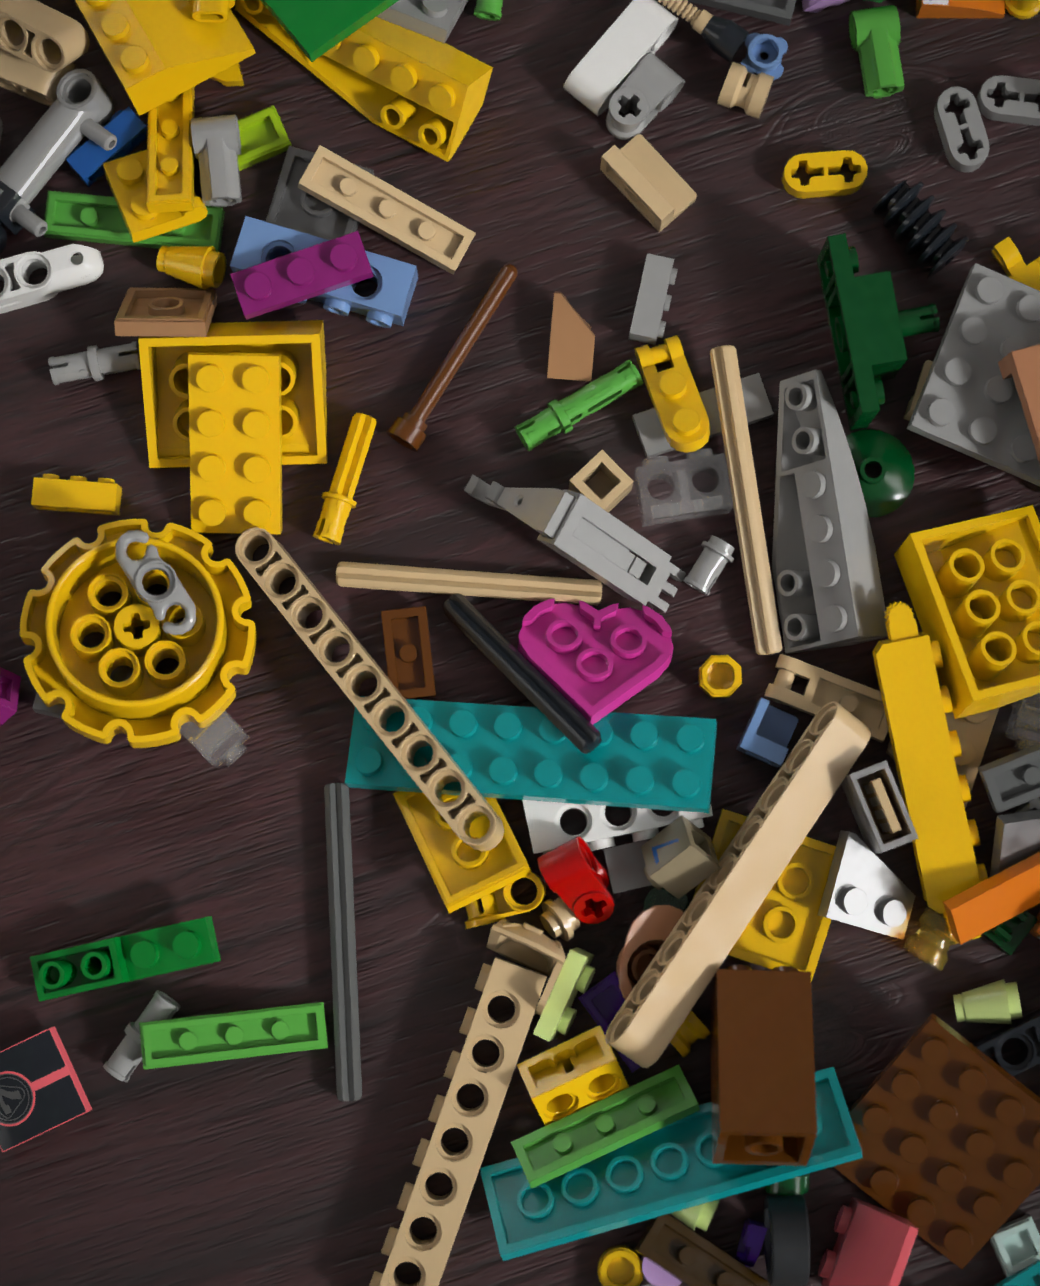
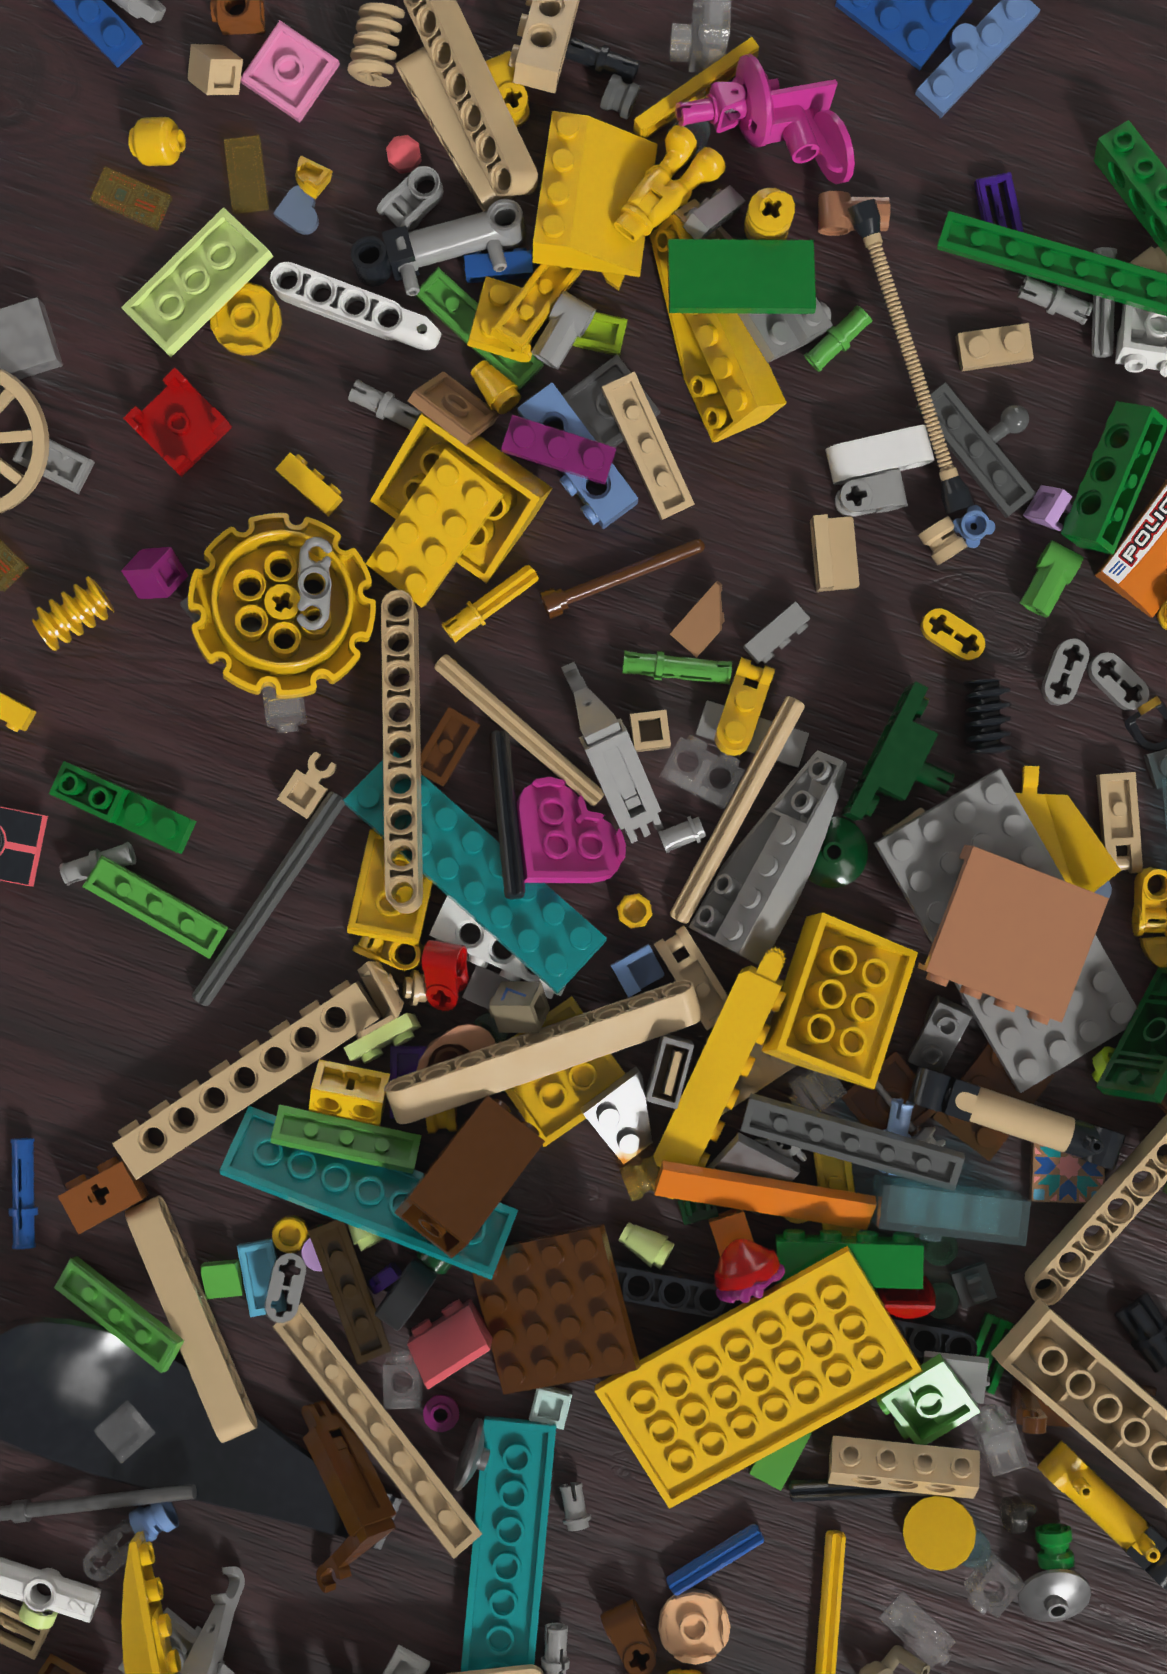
camera: 35 degrees right, 5 degrees up
(298, 805) = (304, 790): none -> tan plate

